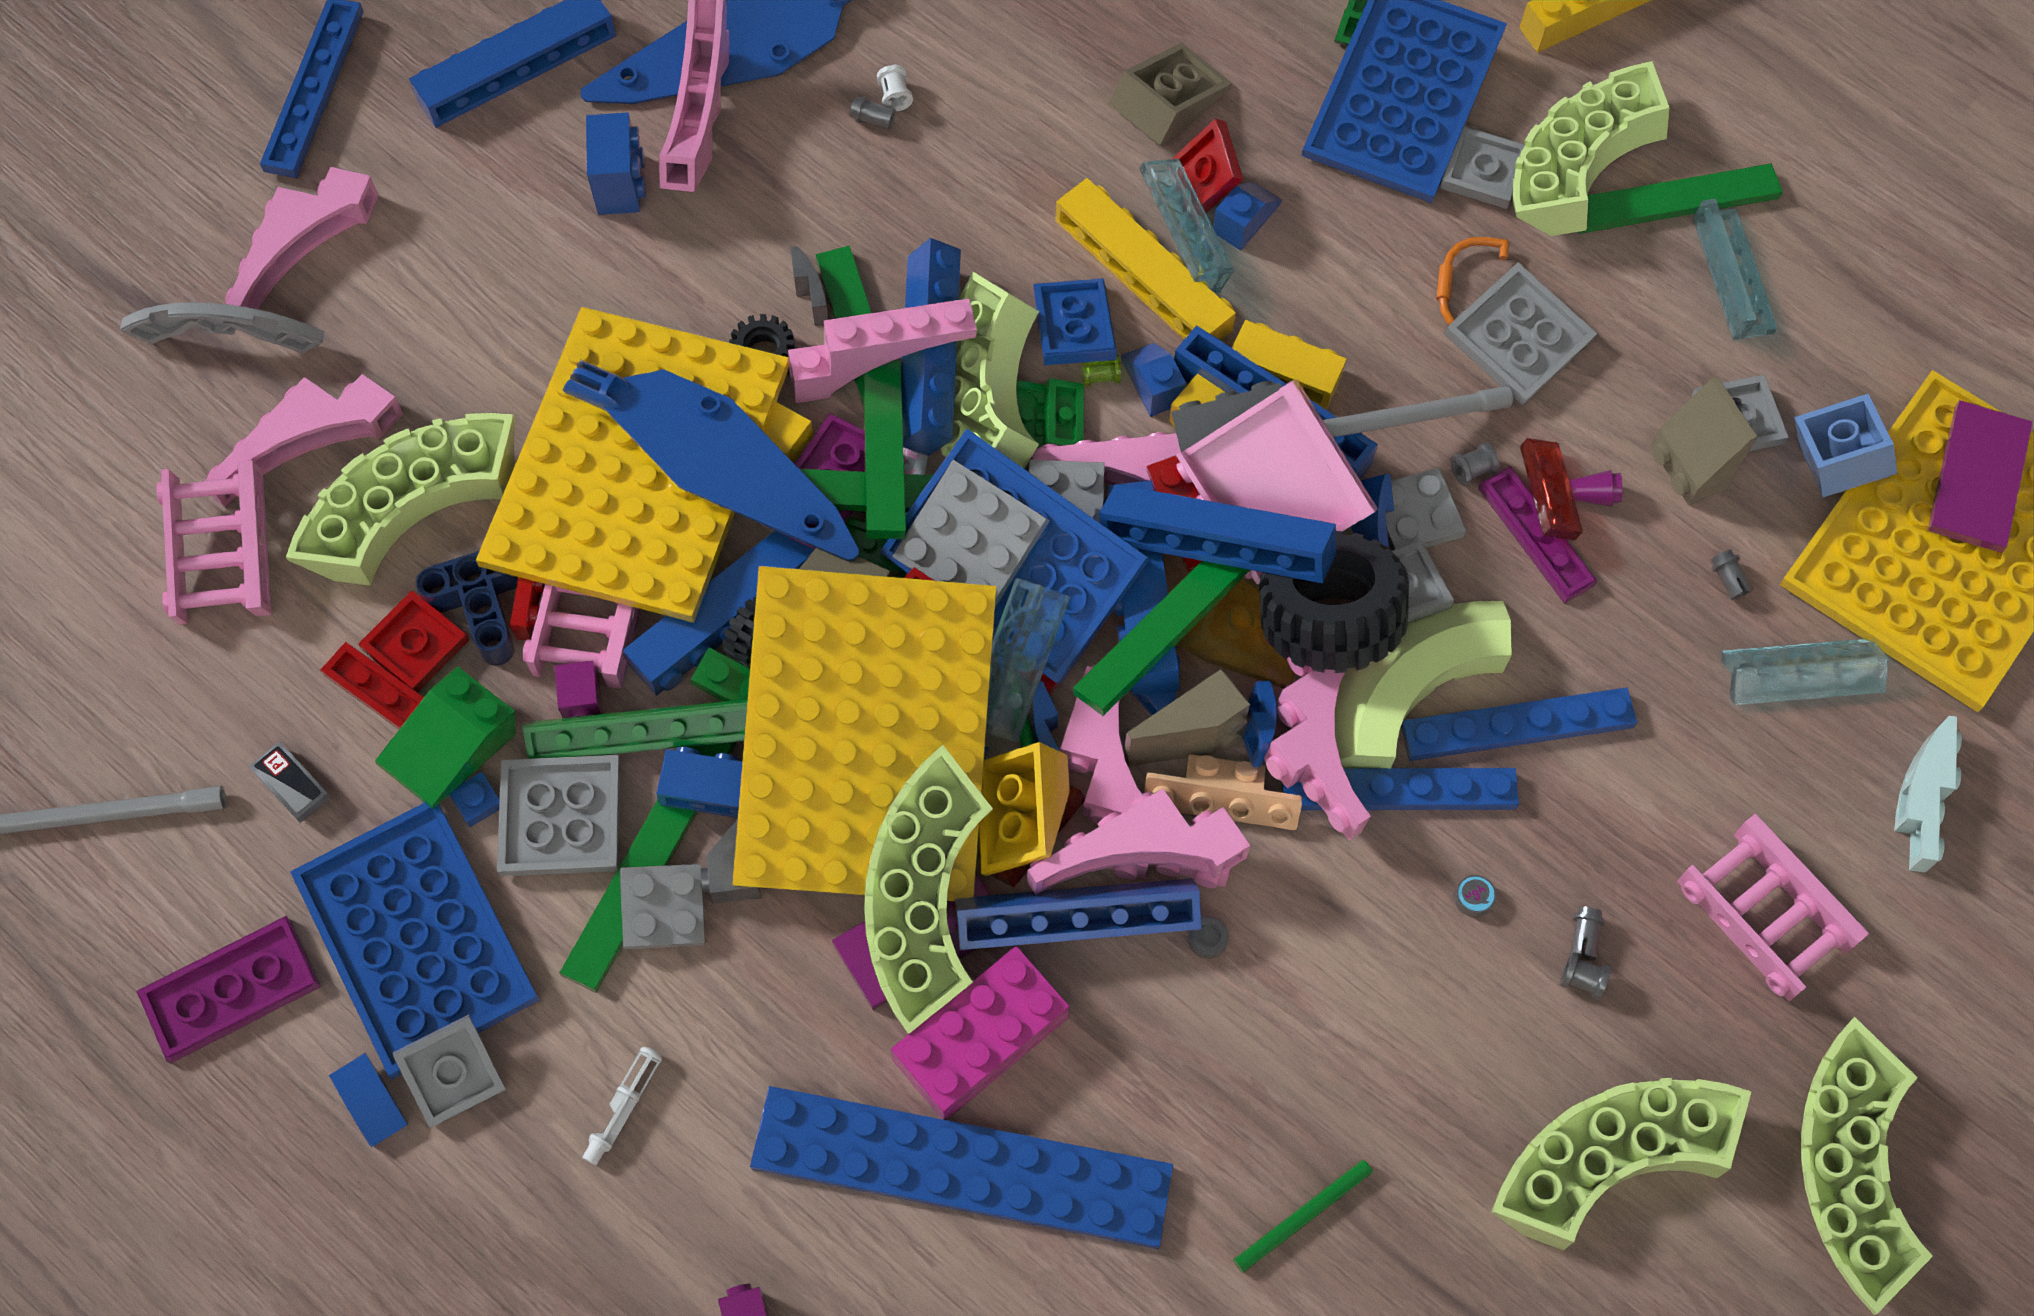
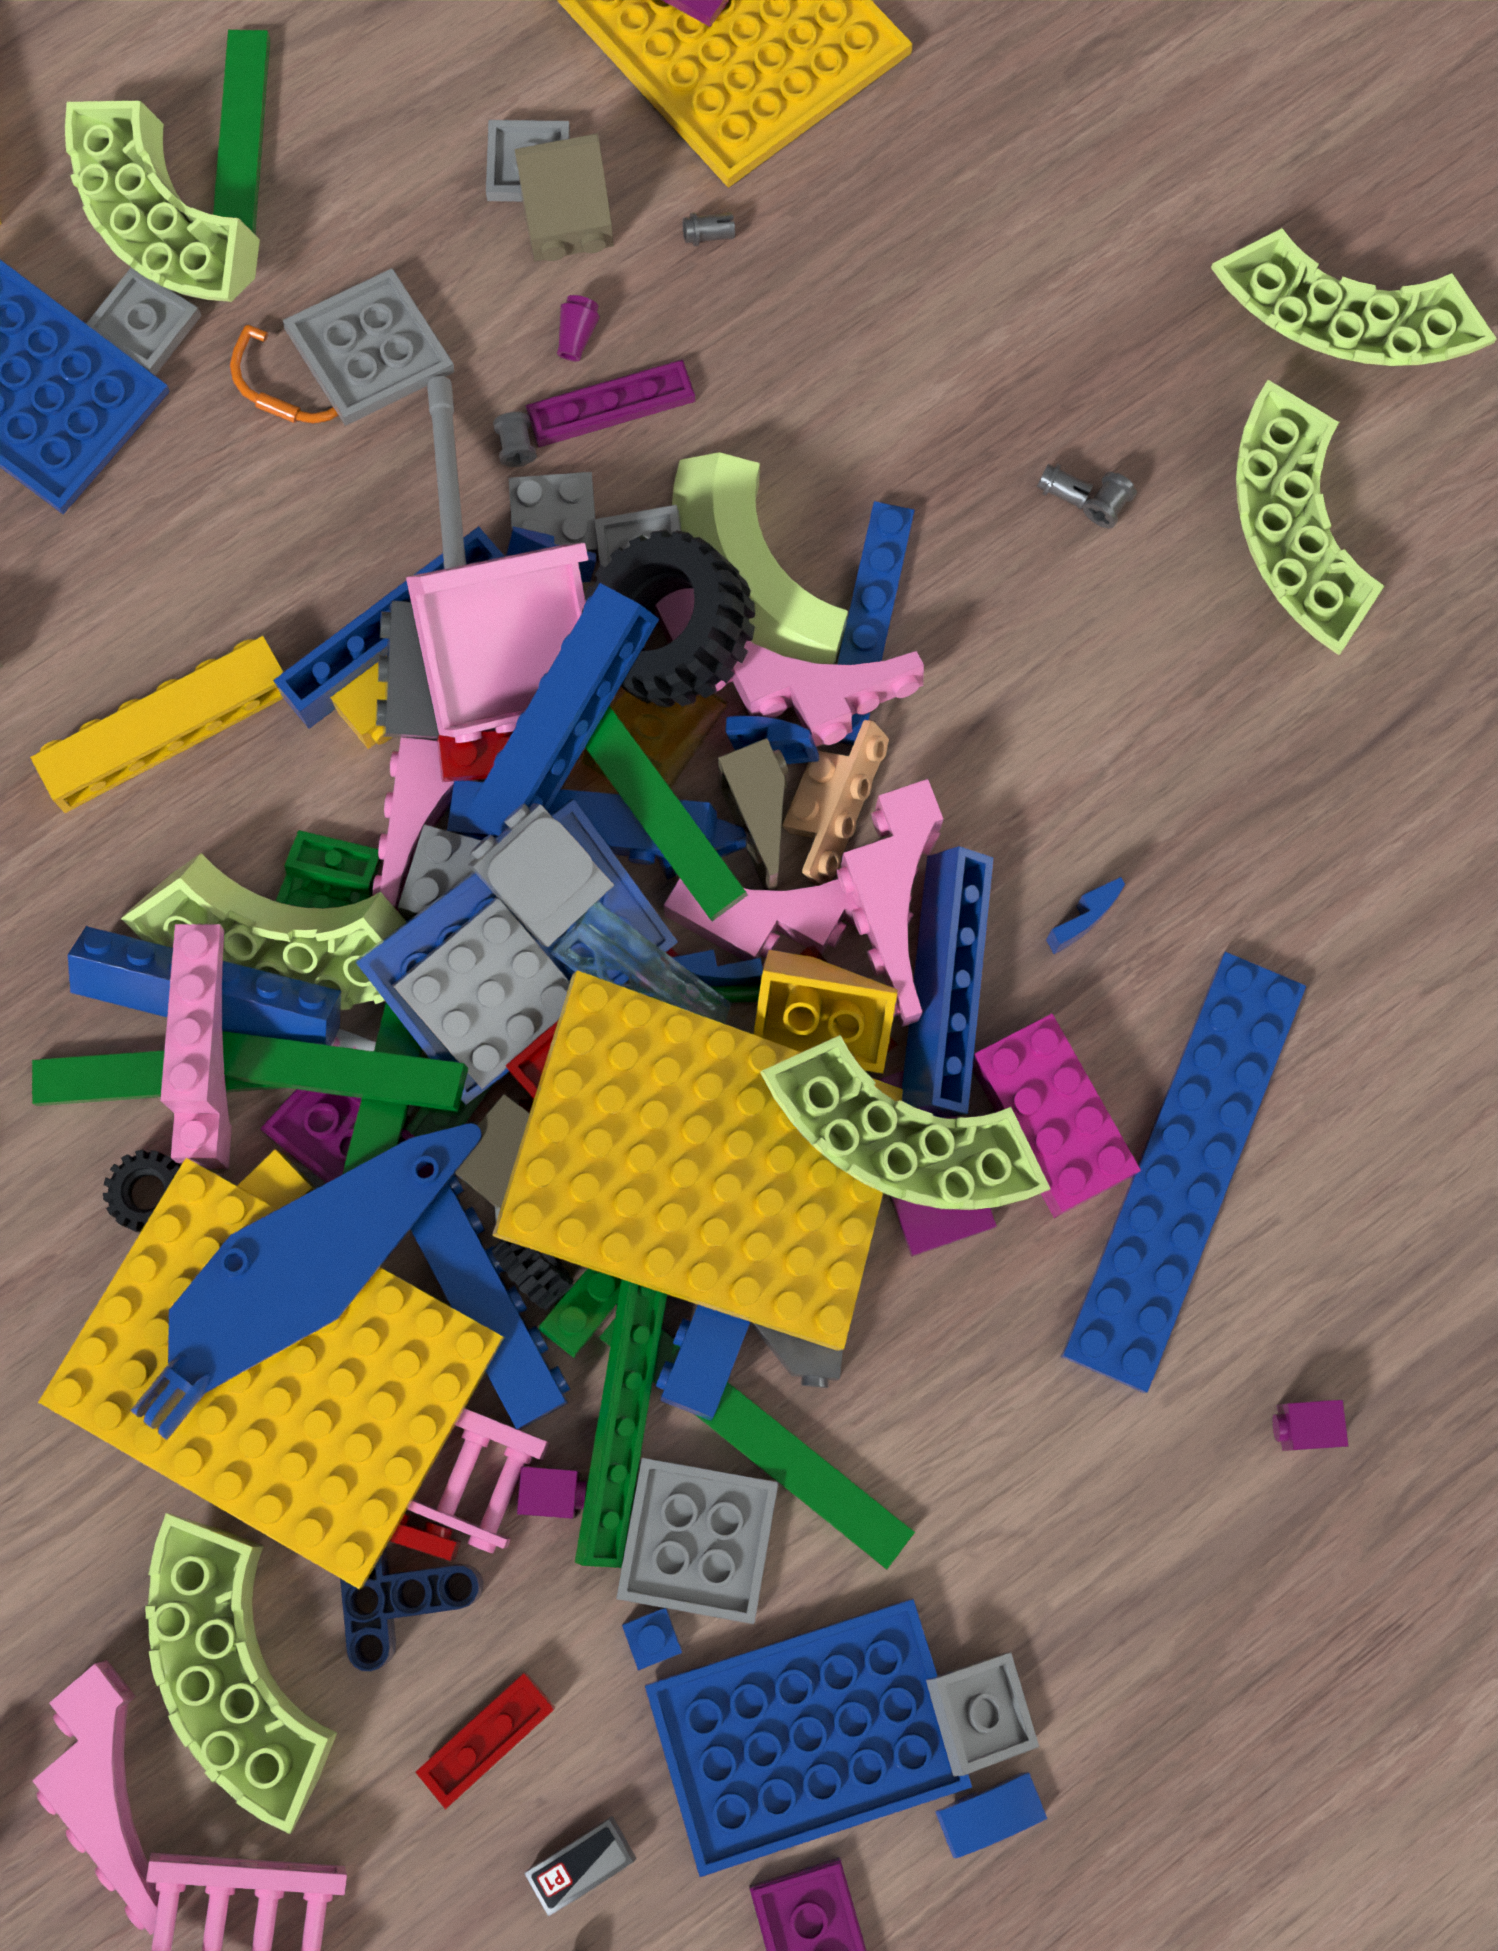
camera: 80 degrees left, 10 degrees up
(413, 641) = (433, 1686): red plate -> none
(447, 737) = (576, 1661): green slope -> none
(622, 1106) = (1051, 1522): white piece -> none
(662, 906) = (835, 1438): light grey plate -> none
(808, 283) = (67, 1119): flat silver slope -> none
(1073, 542) = (539, 872): none -> light grey brick
(1074, 322) = (218, 816): blue tile -> none
(1101, 372) = (286, 805): clear neon green bush -> none
(1154, 377) = (311, 748): blue slope -> none
(1183, 1036) = (1092, 909): none -> blue slope
(1187, 222) = (123, 658): clear light blue fence -> none
(1209, 940) = (995, 848): flat silver tile -> none
(1211, 164) = (59, 618): red plate -> none
(1244, 213) = (125, 595): blue slope -> none
(1292, 359) = (343, 591): yellow brick -> none
(1302, 1216) = (1297, 839): green bar -> none
(1475, 895) = (1000, 581): flat silver tile -> none
(1518, 724) = (823, 482): blue plate -> none
(1551, 489) = (568, 370): clear red plate -> none
(1728, 276) = (349, 112): clear light blue fence -> none
(1782, 871) = (1076, 267): bright pink fence -> none
(1844, 670) = (840, 192): clear light blue fence -> none
(1846, 445) = (600, 65): medium blue brick -> none
(1924, 788) = (972, 120): light aqua slope -> none

